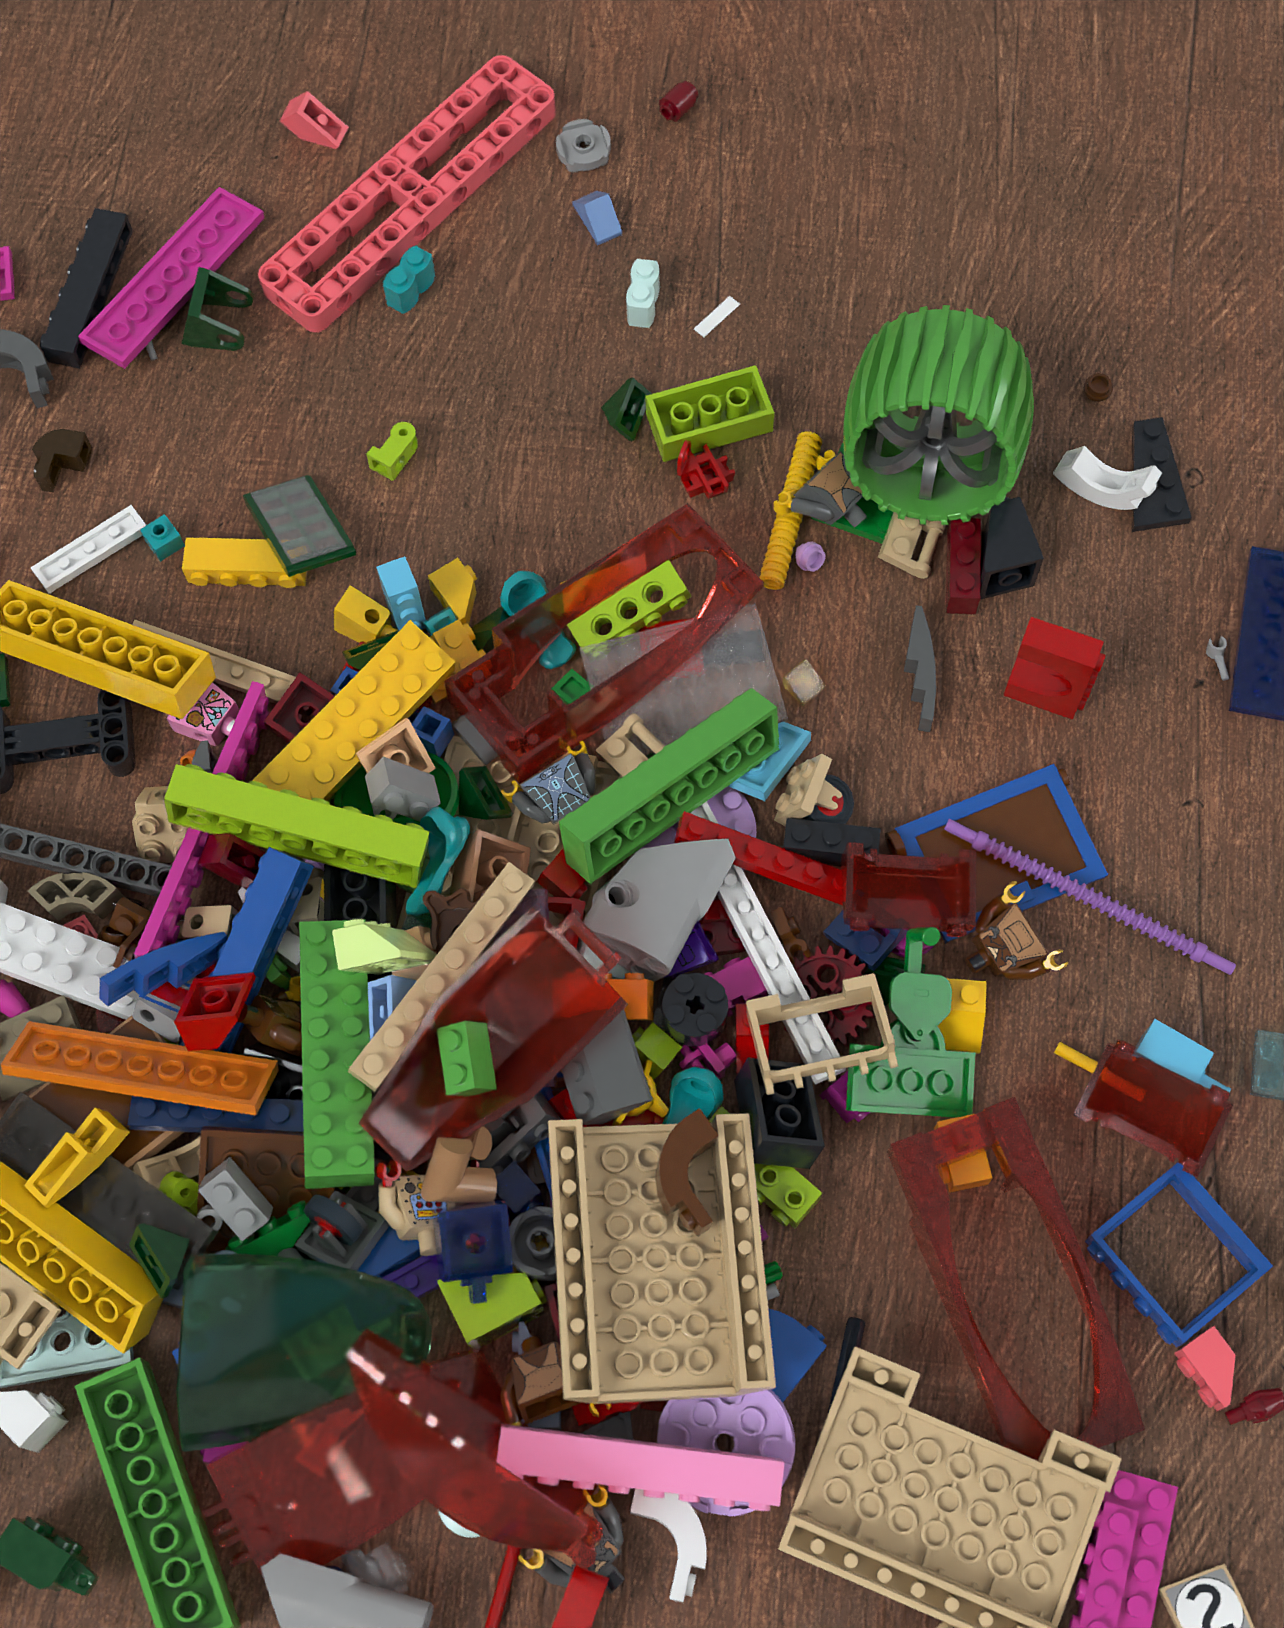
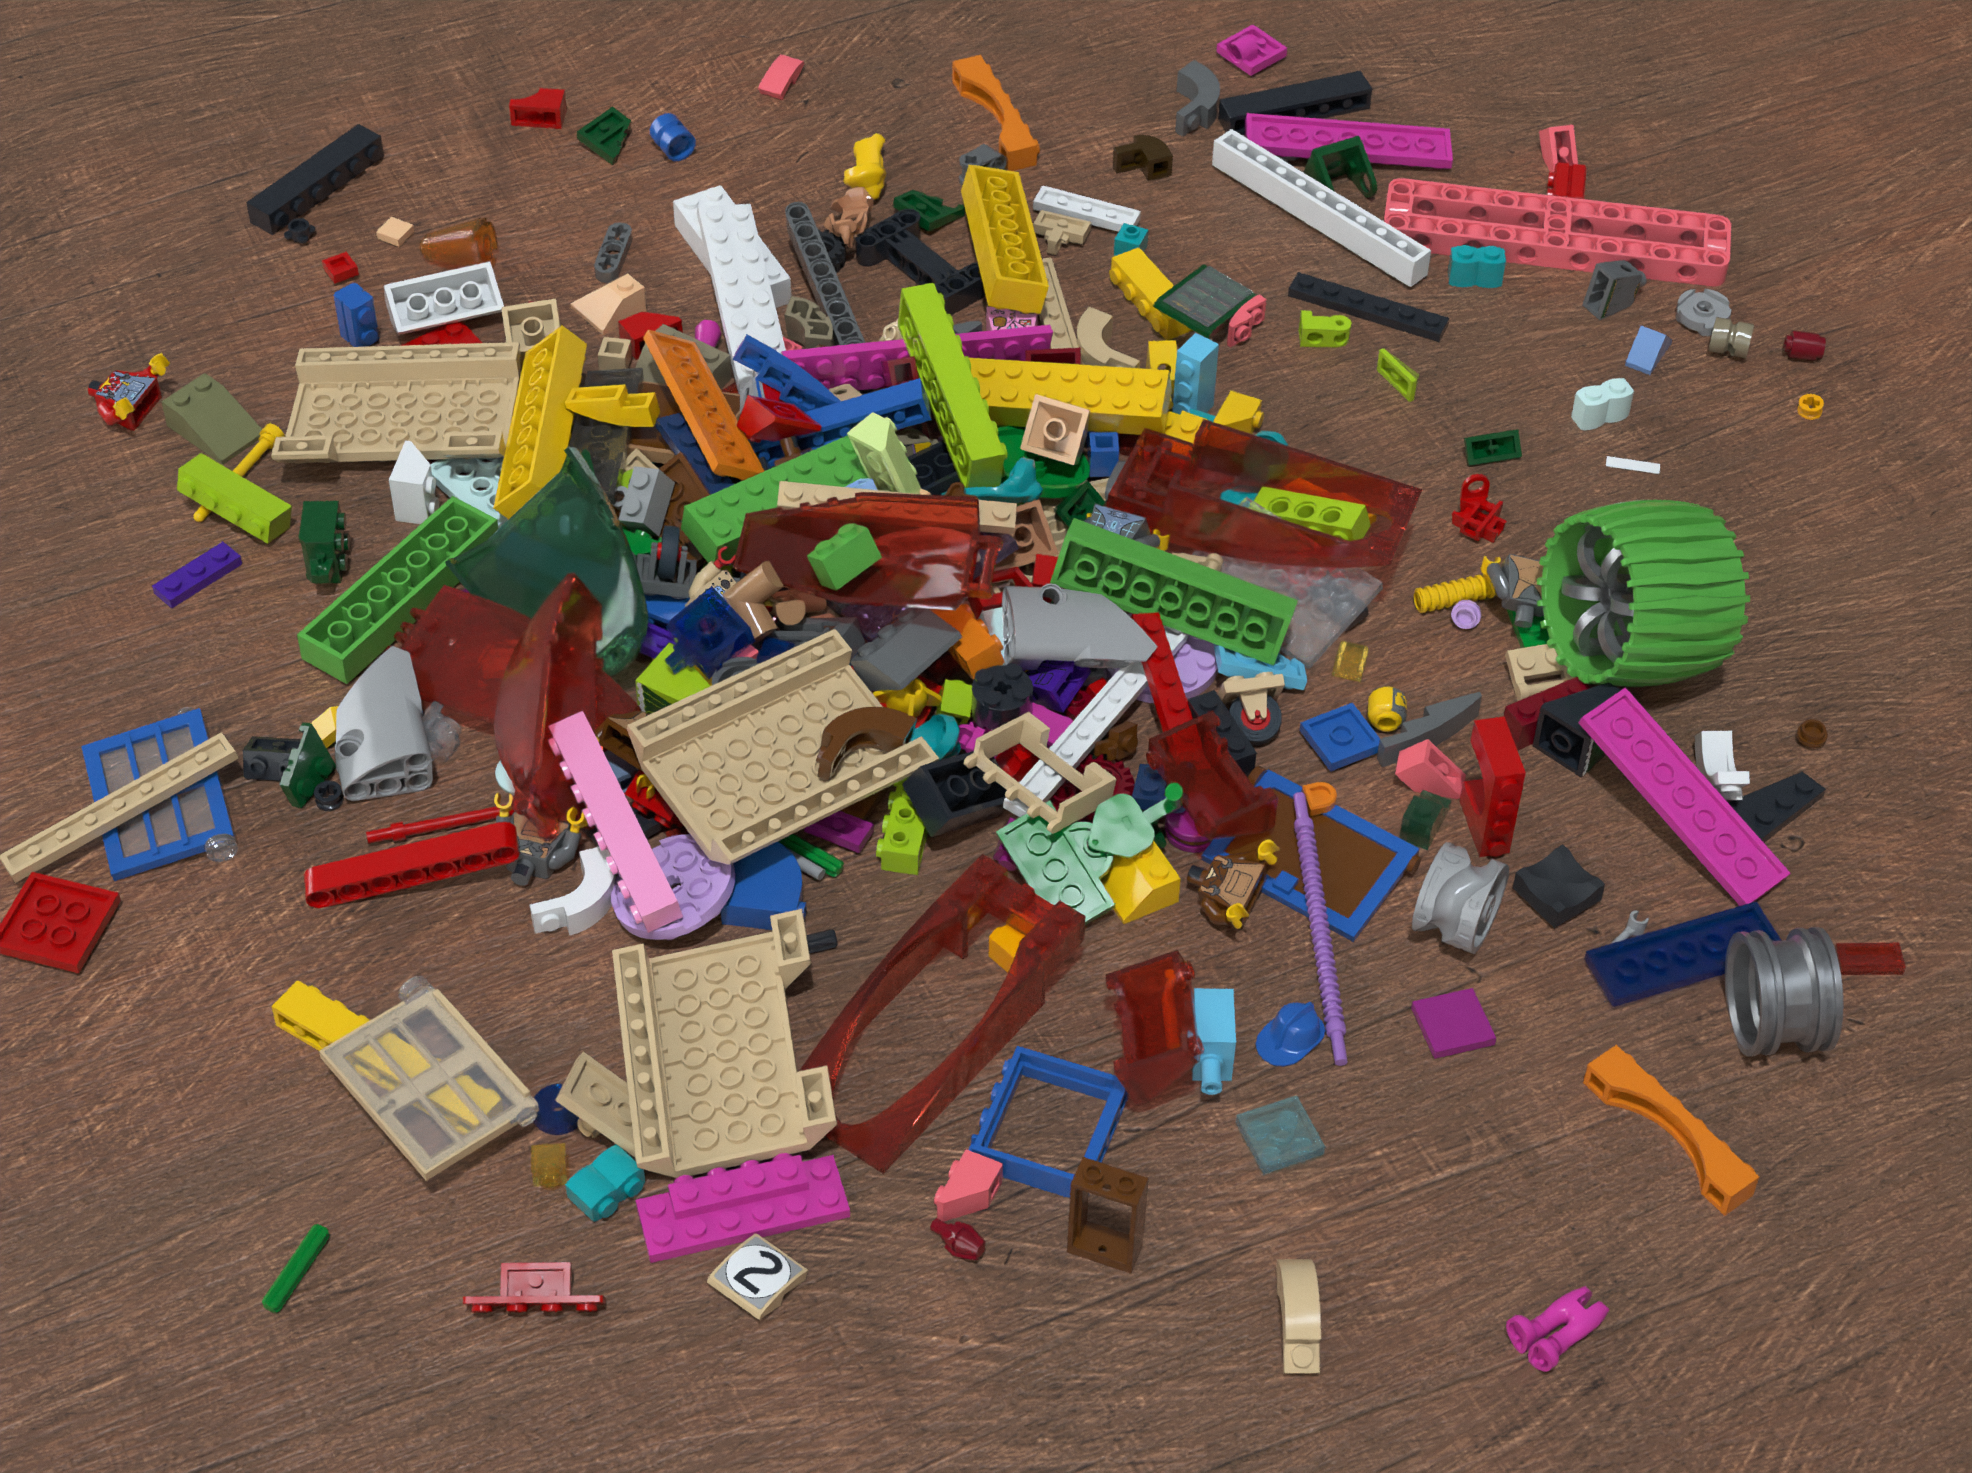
camera: 55 degrees right, 20 degrees down
(99, 587) = (1060, 229): none -> tan hinge
(241, 354) = (1321, 208): none -> white brick
(288, 658) = (1092, 335): none -> tan arch
(339, 505) = (1247, 316): none -> coral slope
(361, 144) = (1567, 181): none -> red brick
(387, 395) = (1368, 307): none -> black plate
(401, 790) = (1033, 438): light grey brick -> none
(493, 424) = (1398, 374): none -> lime slope
(515, 183) = (1612, 288): none -> dark grey torso
(631, 150) = (1731, 337): none -> dark tan wheel
(710, 412) = (1531, 487): lime brick -> none
(743, 137) = (1810, 400): none -> light orange bush
(879, 687) = (1387, 708): none -> yellow head
(885, 744) = (1340, 736): none -> blue plate
(955, 806) = (1319, 797): none -> orange tile
(969, 700) = (1429, 770): none -> coral slope
(1015, 735) = (1424, 819): none -> clear green arch
(1133, 529) = (1684, 798): none -> dark pink plate
(1145, 770) = (1460, 898): none -> light grey piece
(1152, 682) = (1558, 887): none -> black brick
(1180, 992) = (1290, 1034): none -> blue piece
(1240, 854) = (1453, 1023): none -> magenta tile

